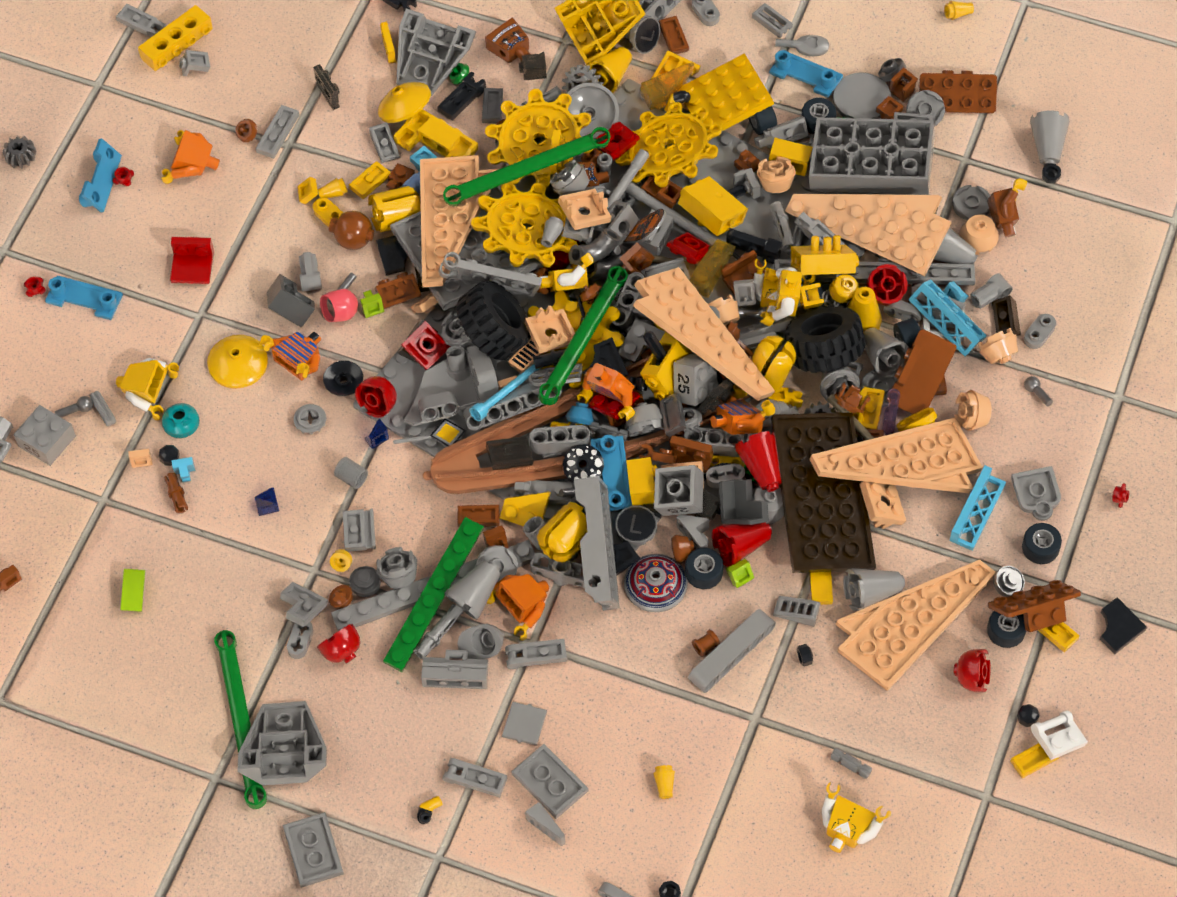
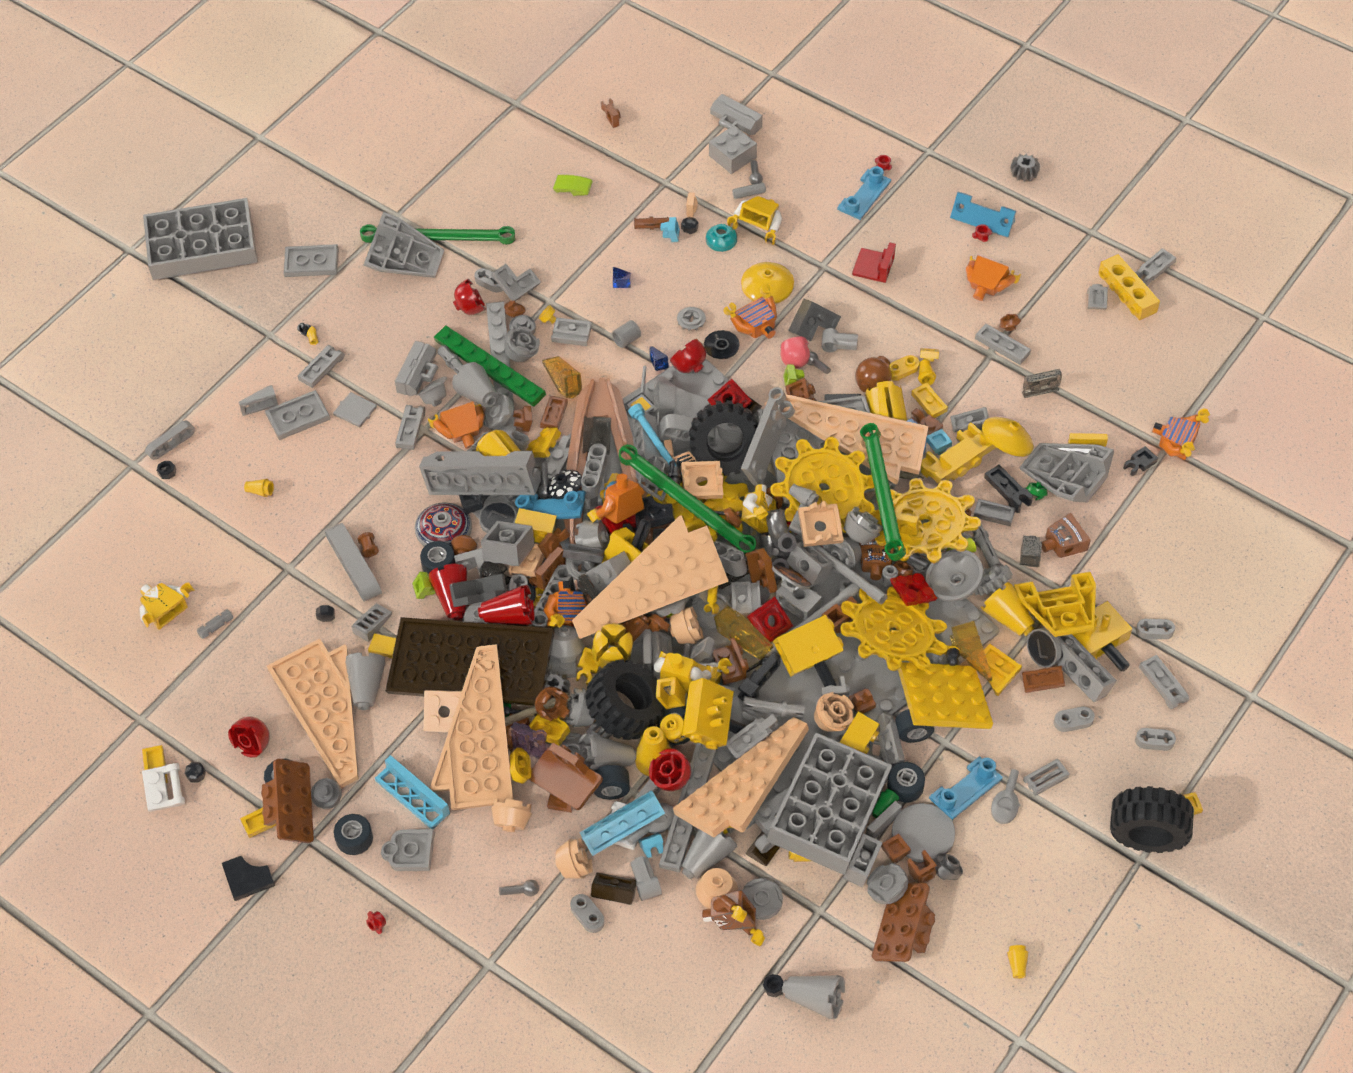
camera: 105 degrees right, 5 degrees down
(426, 518) = (563, 376): none -> clear yellow slope

